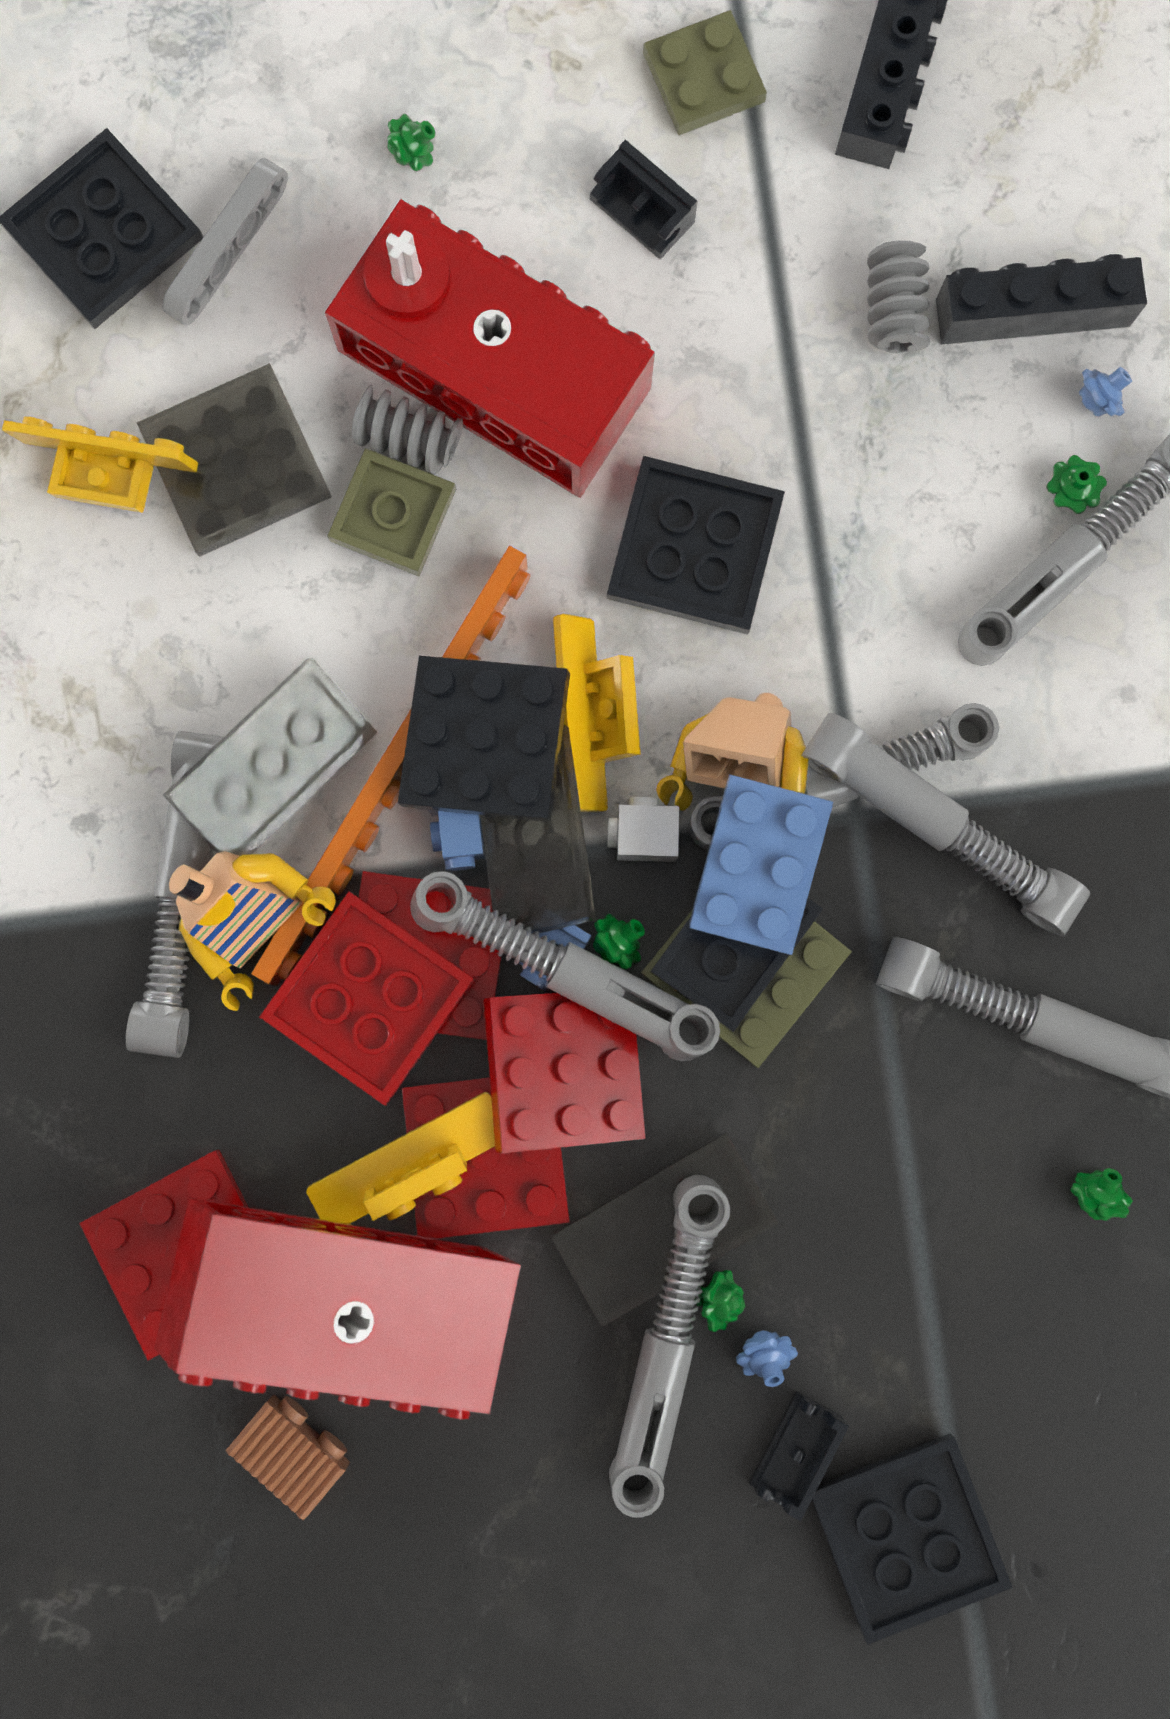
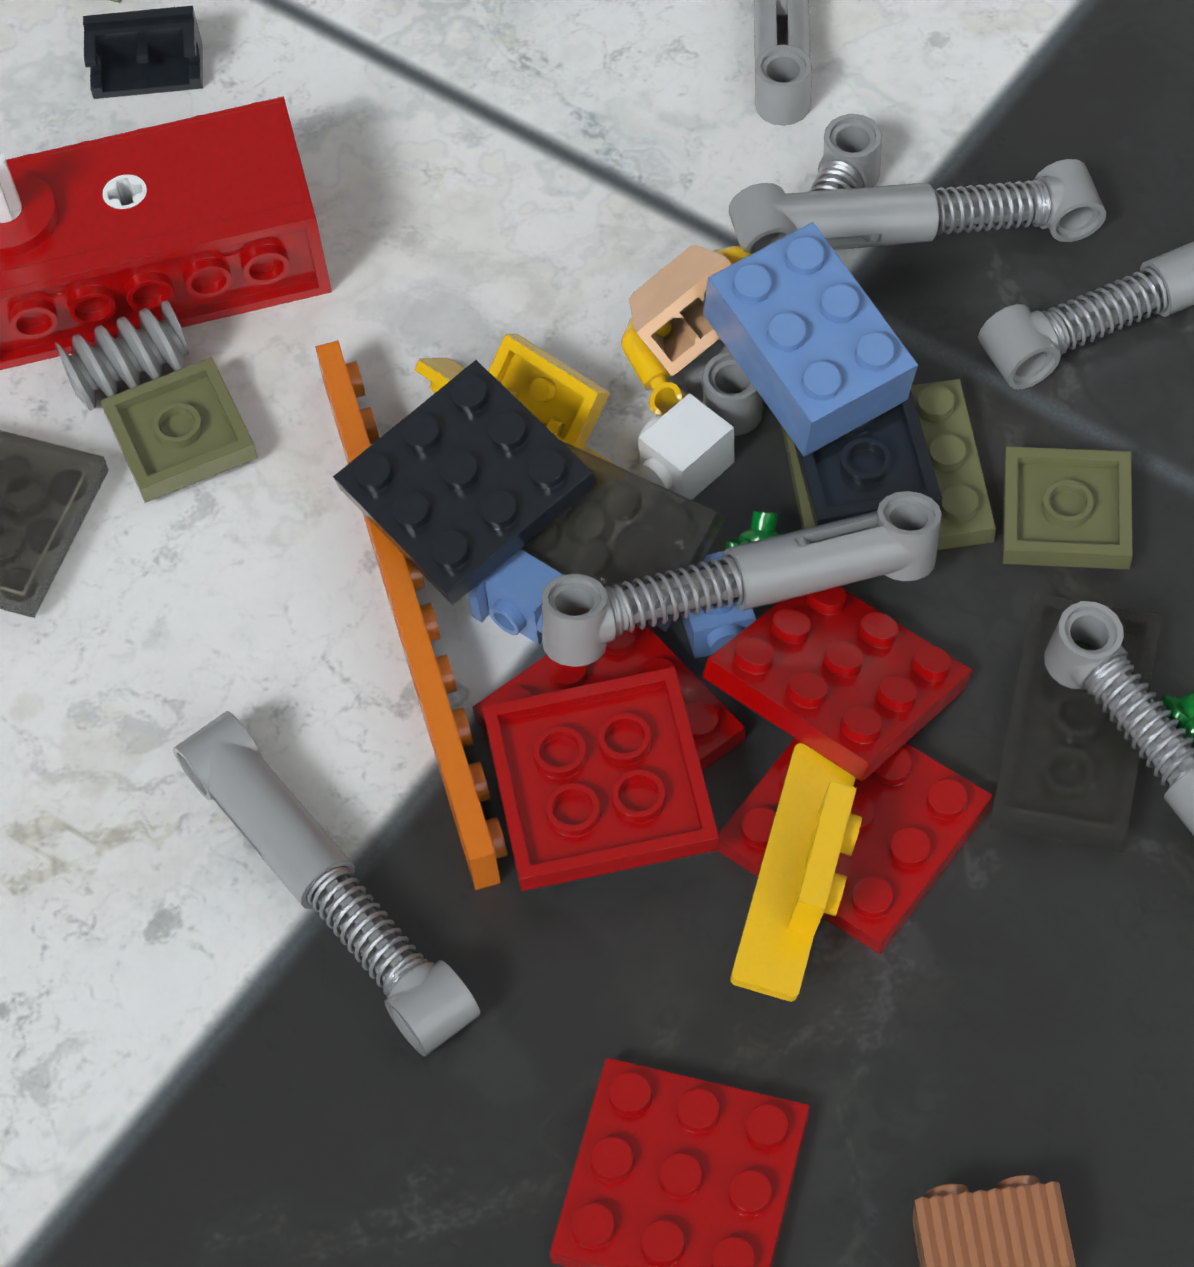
camera: 40 degrees left, 25 degrees down
(236, 908) = (394, 816): torso -> none
(271, 762) = (292, 686): clear smoke plate -> none
(335, 1310) = (874, 1005): piece -> none
(695, 545) = (471, 230): black plate -> none
(812, 1098) = (1067, 508): none -> olive plate

